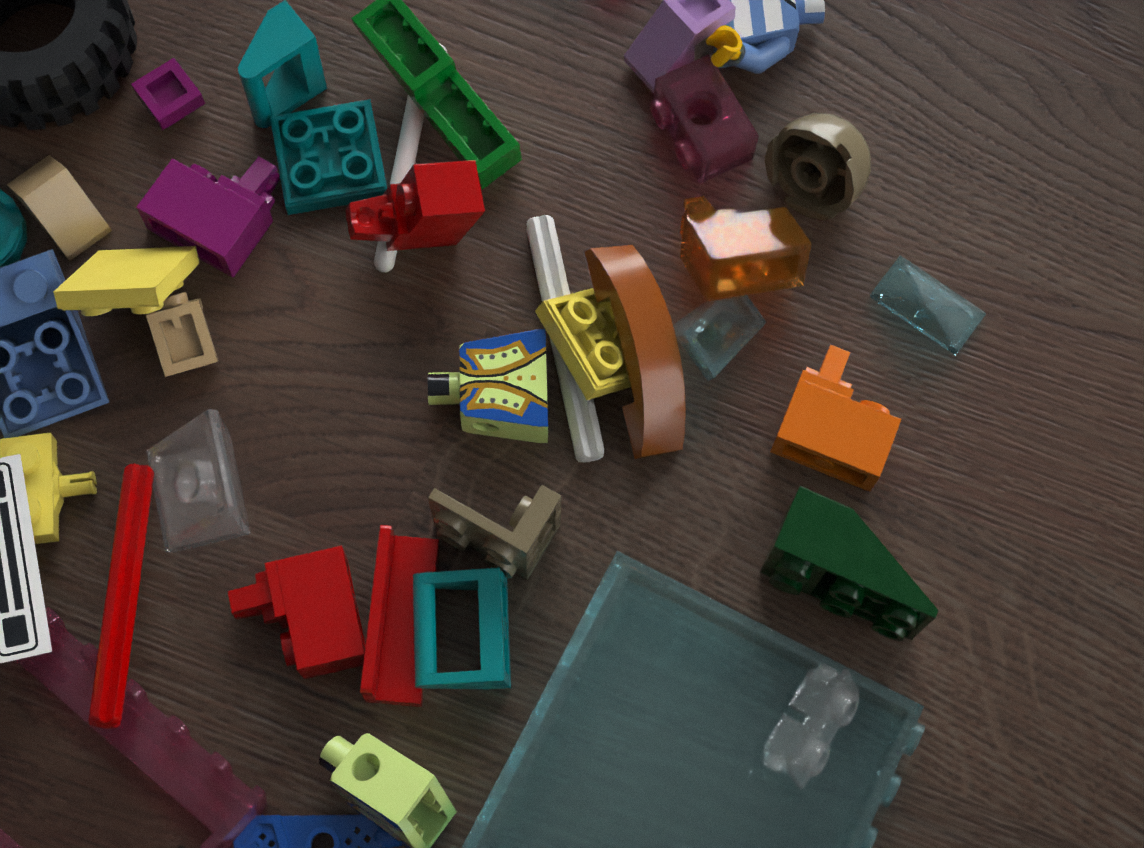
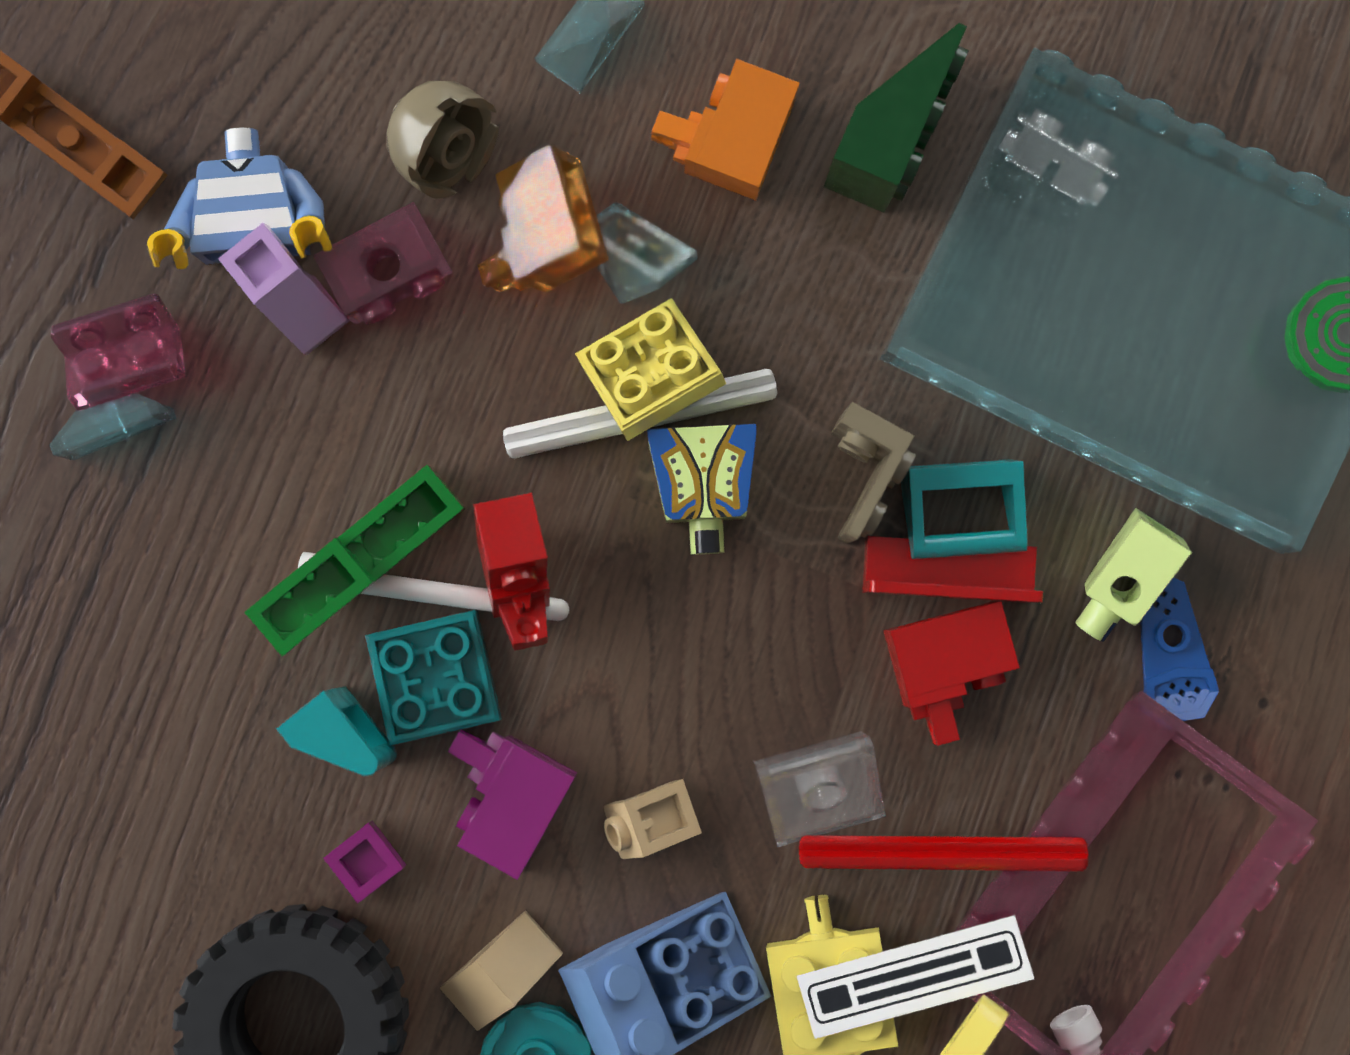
camera: 90 degrees left, 15 degrees up
(126, 279) = (602, 881): light yellow tile -> none
(648, 347) = (656, 321): dark orange slope -> none

